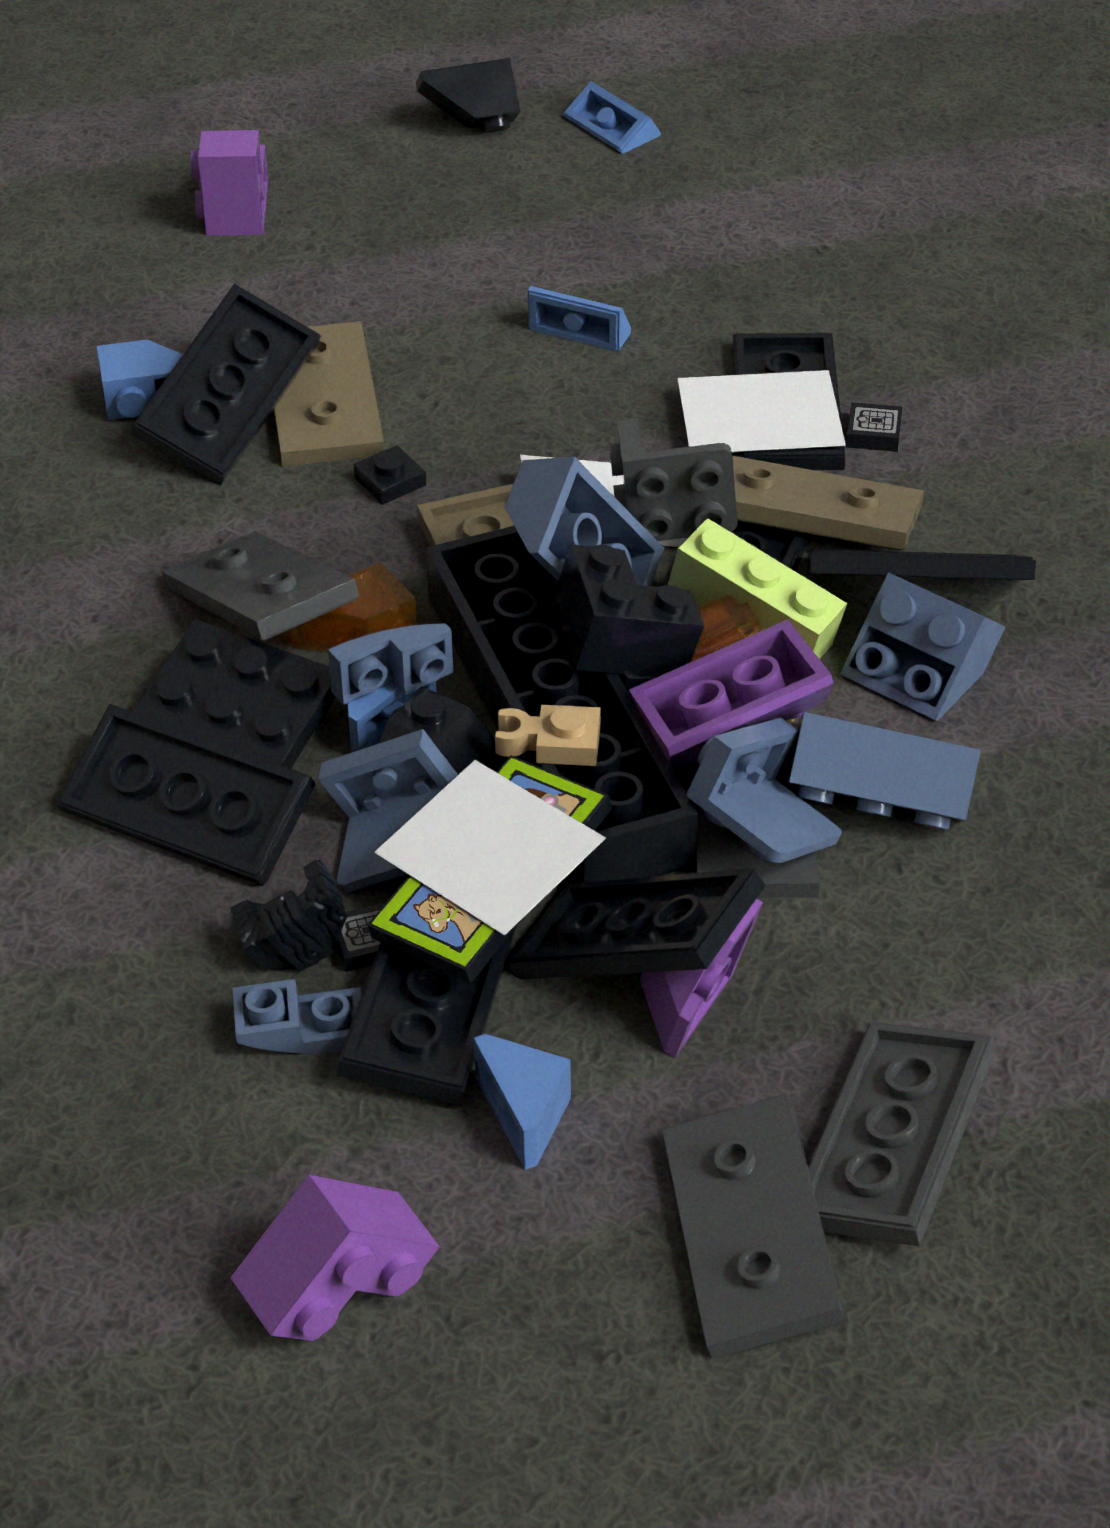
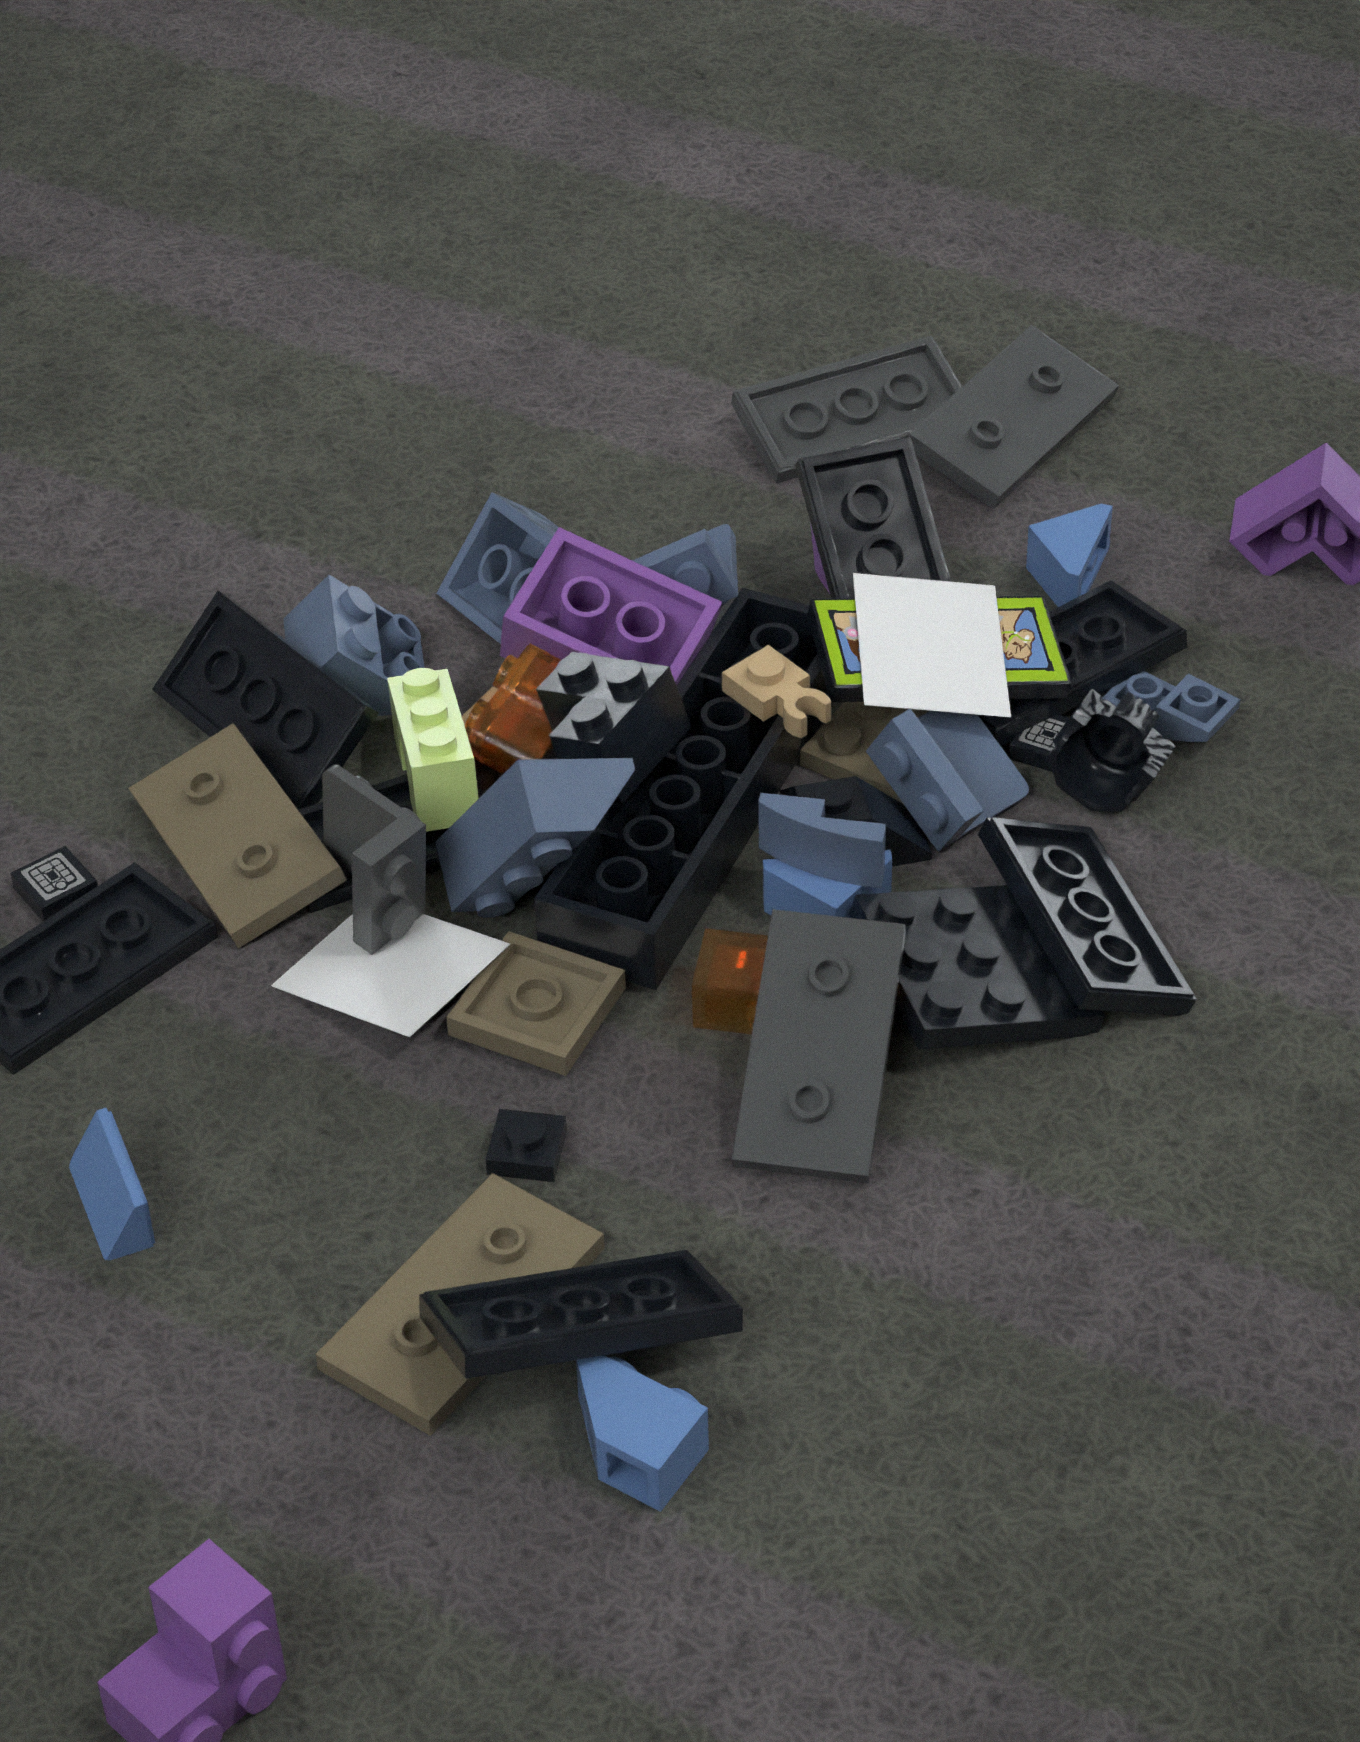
camera: 135 degrees left, 0 degrees up
(762, 411) = (131, 951): white sticker -> none

